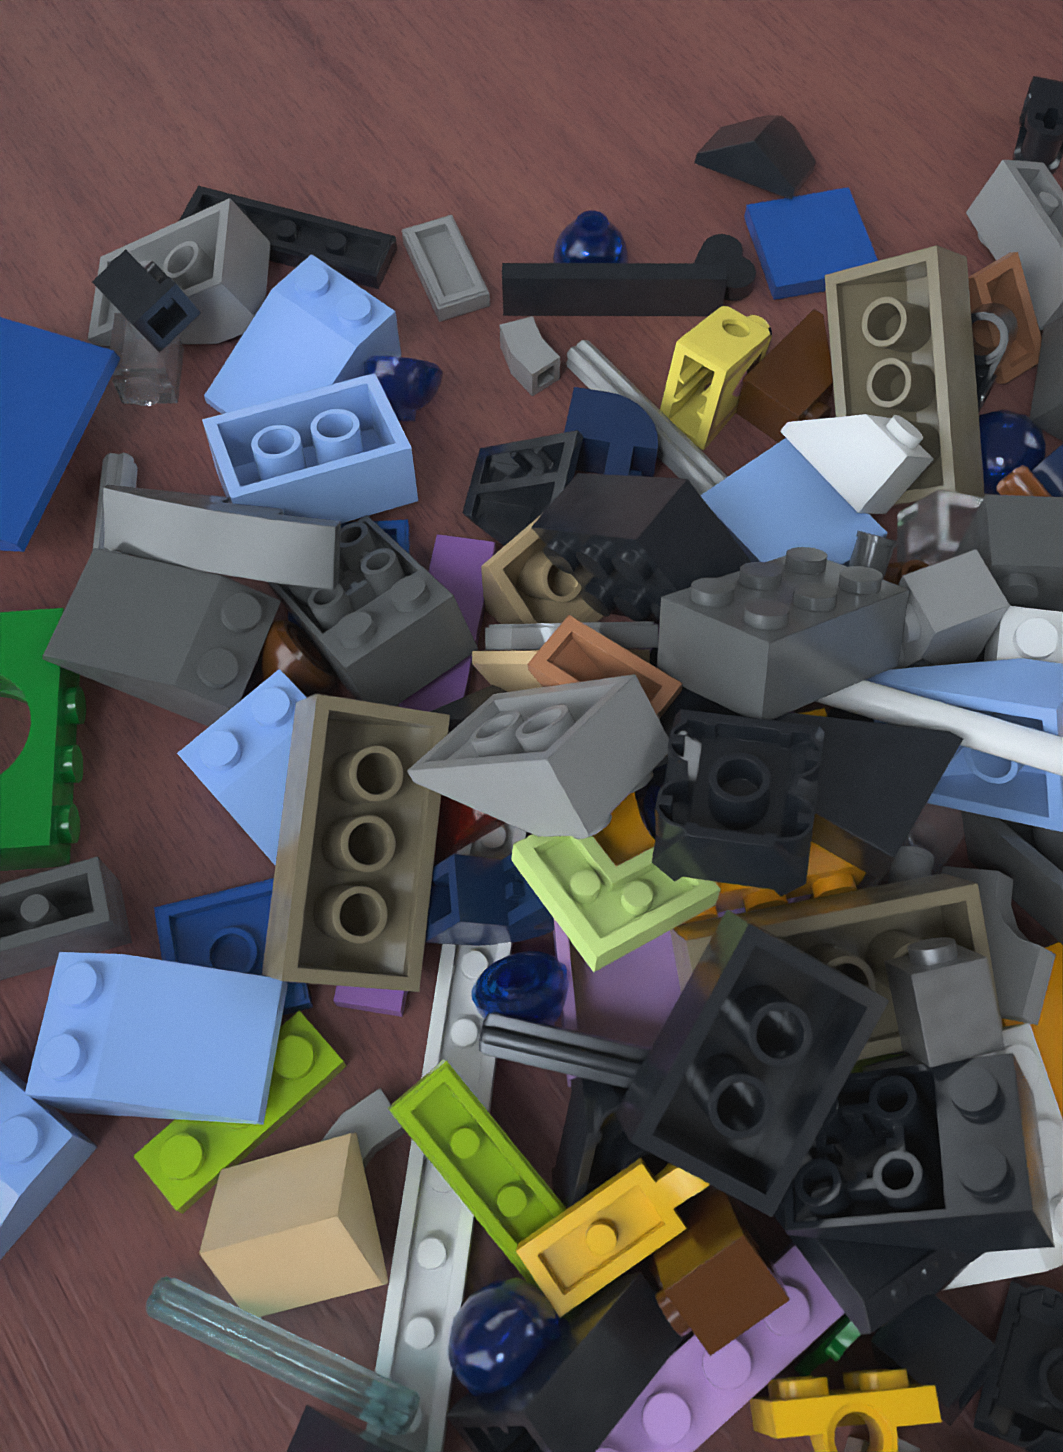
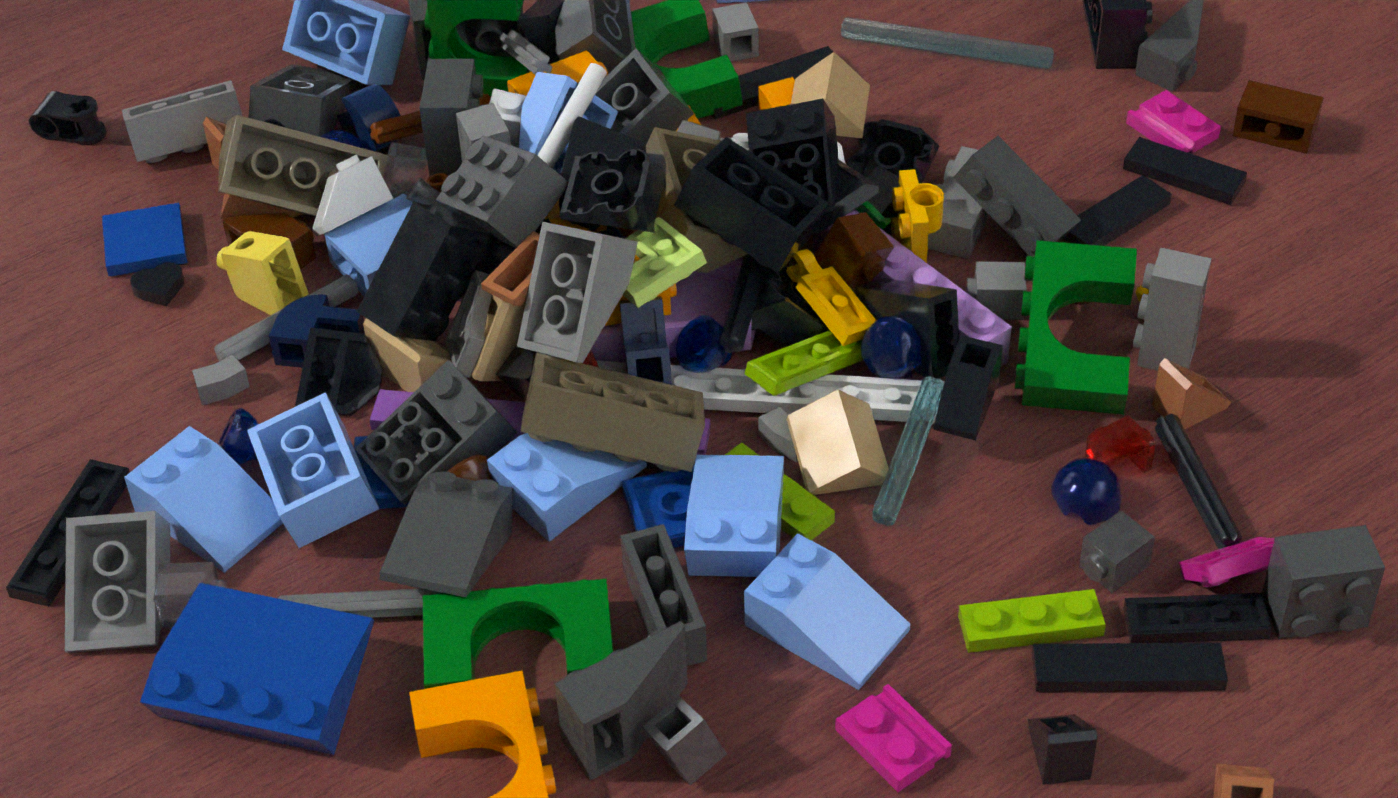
camera: 90 degrees left, 20 degrees down
(147, 299) = (161, 556): black brick -> none
(222, 536) = (384, 494): slope -> none
(445, 268) = (124, 433): light grey tile -> none
(590, 240) = (127, 350): clear blue brick -> none
(613, 289) = (172, 333): black tile -> none
(761, 153) = (56, 262): black slope -> none
(944, 1002) = (710, 131): flat silver brick -> none

